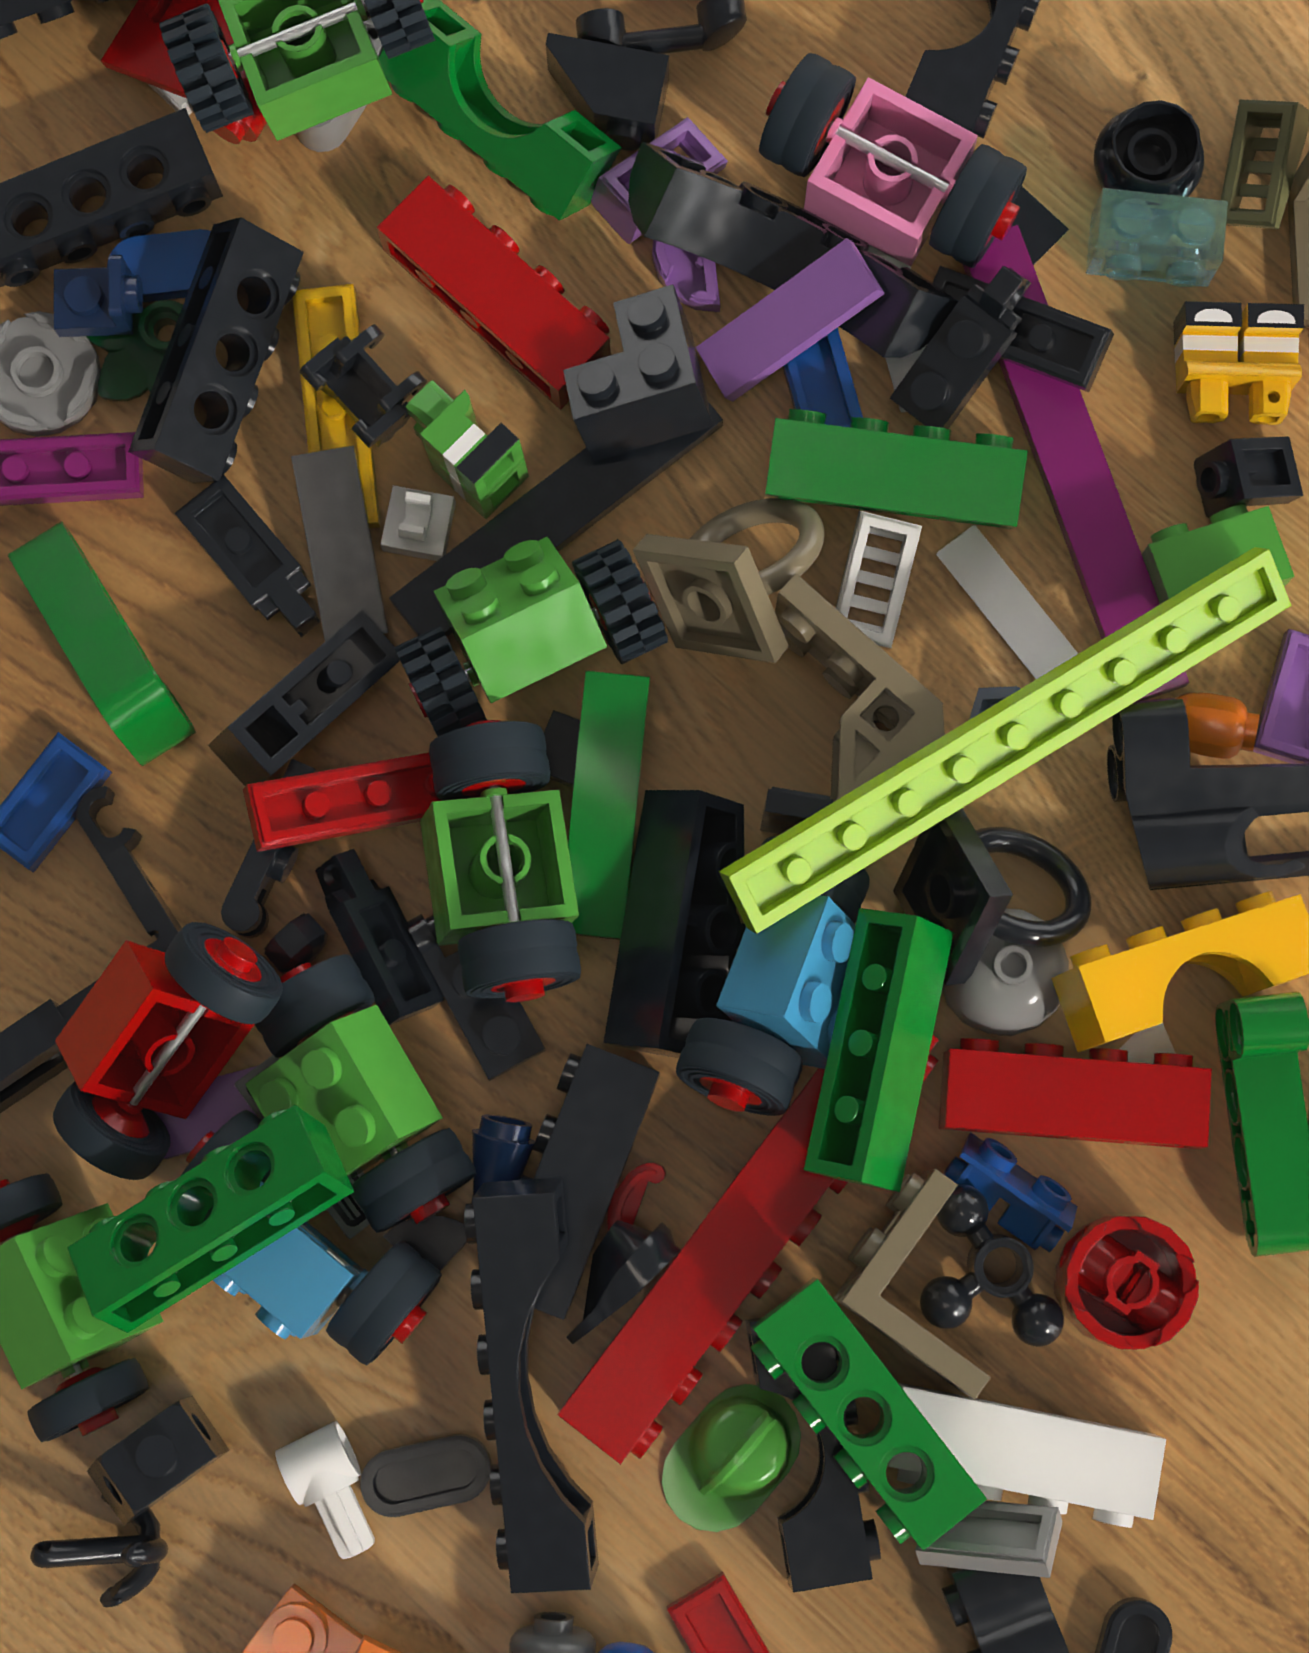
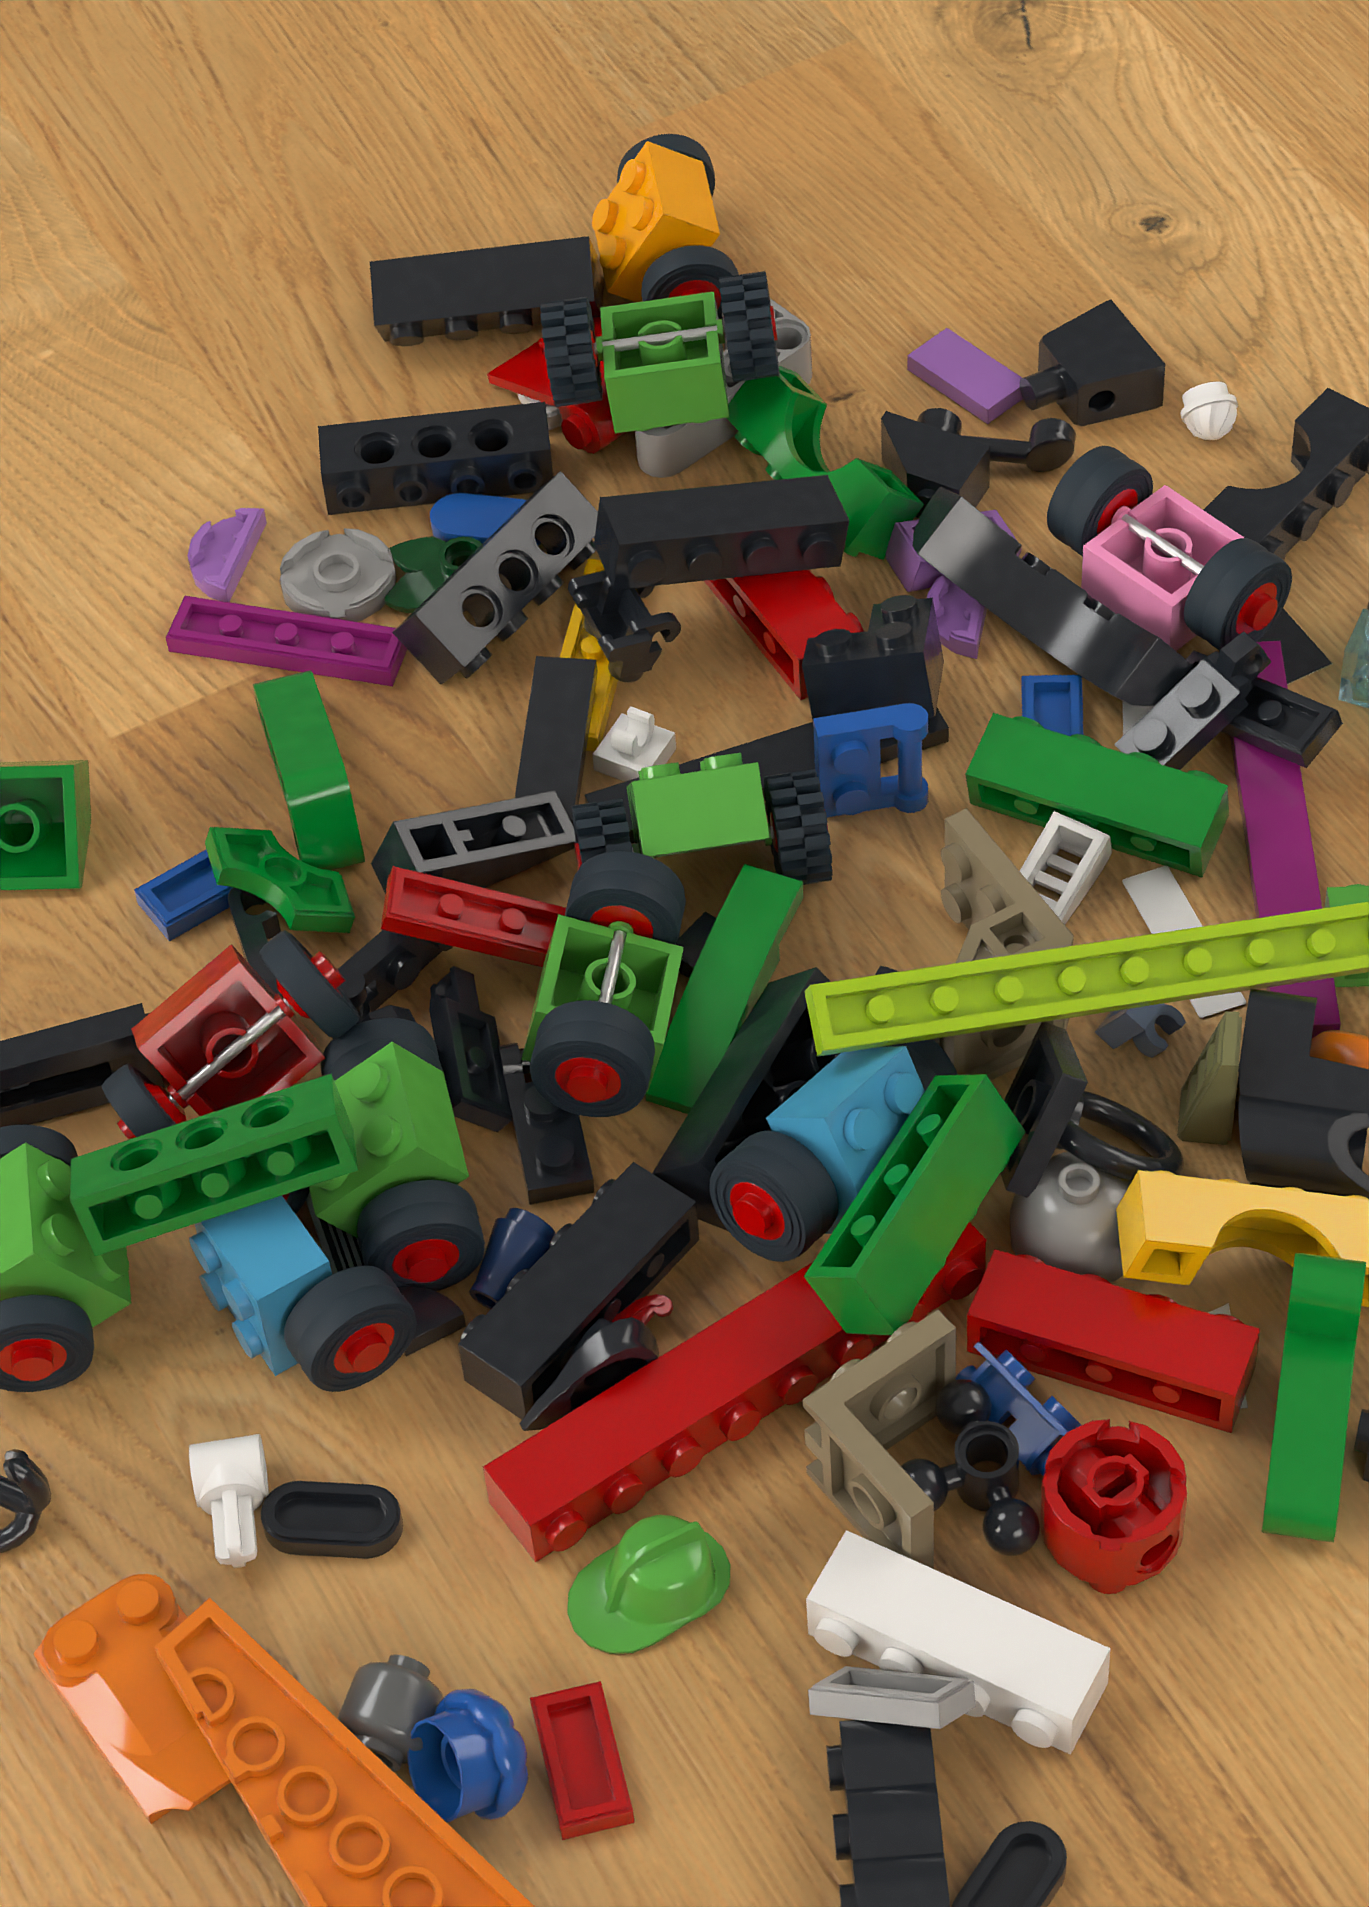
camera: 20 degrees right, 30 degrees down
(96, 782) = (300, 892): none -> green tile
(97, 300) = (412, 524): dark blue bracket -> none
(157, 1459) = (72, 1407): black torso -> none
(249, 554) = (469, 735): black hinge -> none
(438, 268) = (720, 532): none -> black brick
(473, 464) = (701, 690): bright green hips -> none
(546, 1515) = (499, 1290): black arch -> none
(670, 500) = (851, 763): none -> blue plate
(713, 589) = (889, 826): dark tan tile -> none
(789, 320) = (1035, 657): medium lavender tile -> none
(825, 1531) = (719, 1656): black arch -> none
(944, 1488) = (827, 1623): green brick -> none
(1096, 800) = (1210, 1088): none -> olive slope

